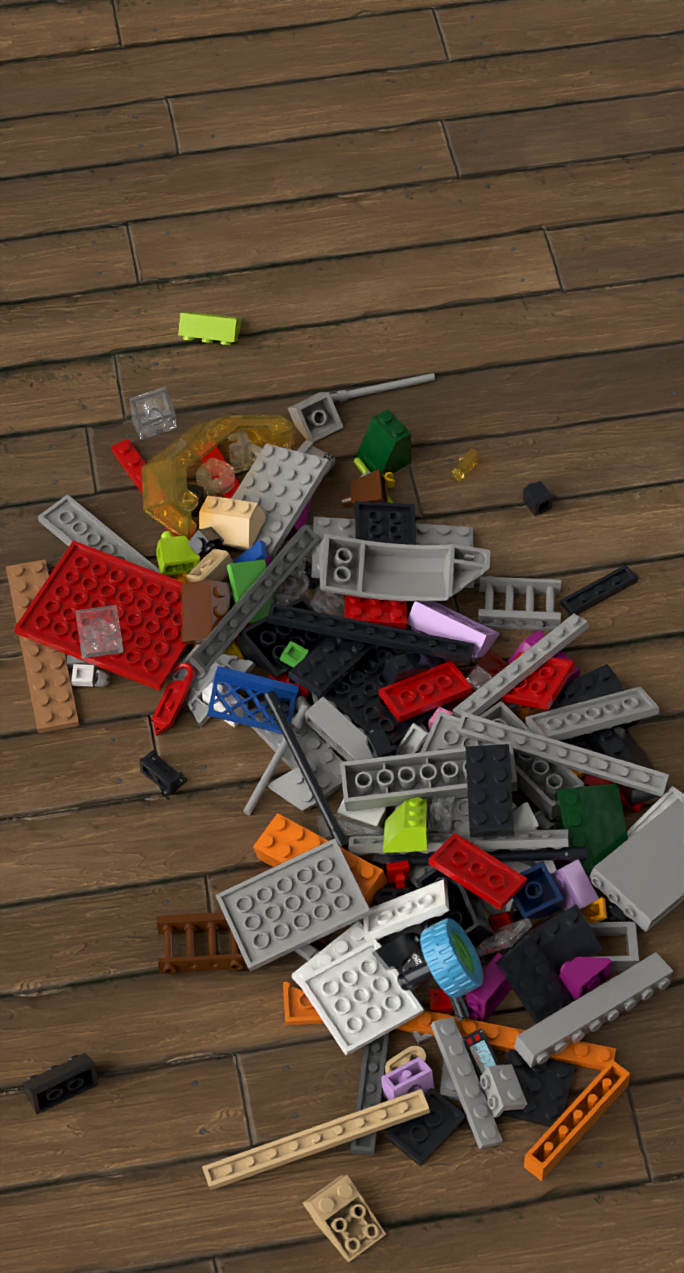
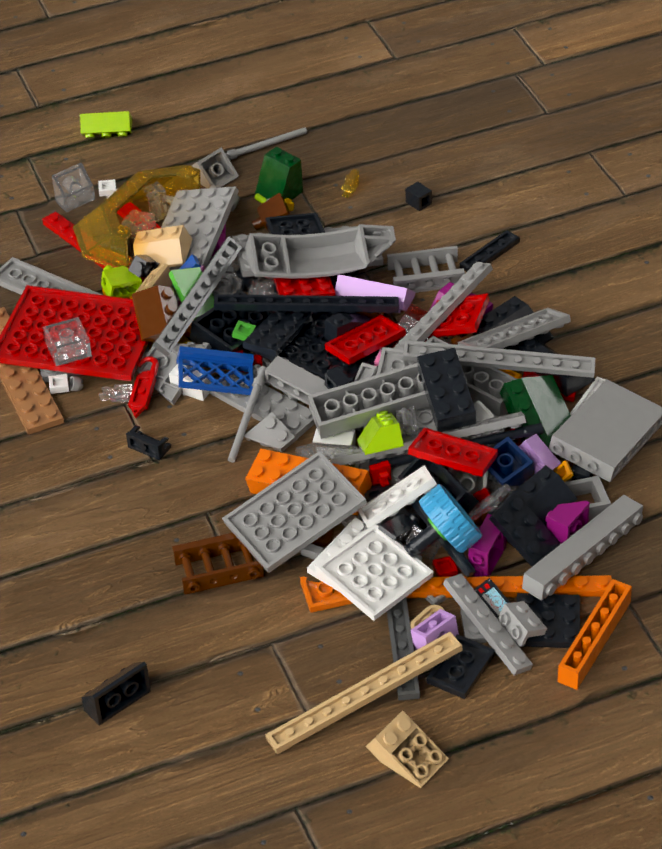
camera: 10 degrees left, 10 degrees down
(144, 702) = (119, 393): none -> clear plate
(191, 416) = (106, 187): none -> white plate
(317, 793) = (239, 373): black piece -> none

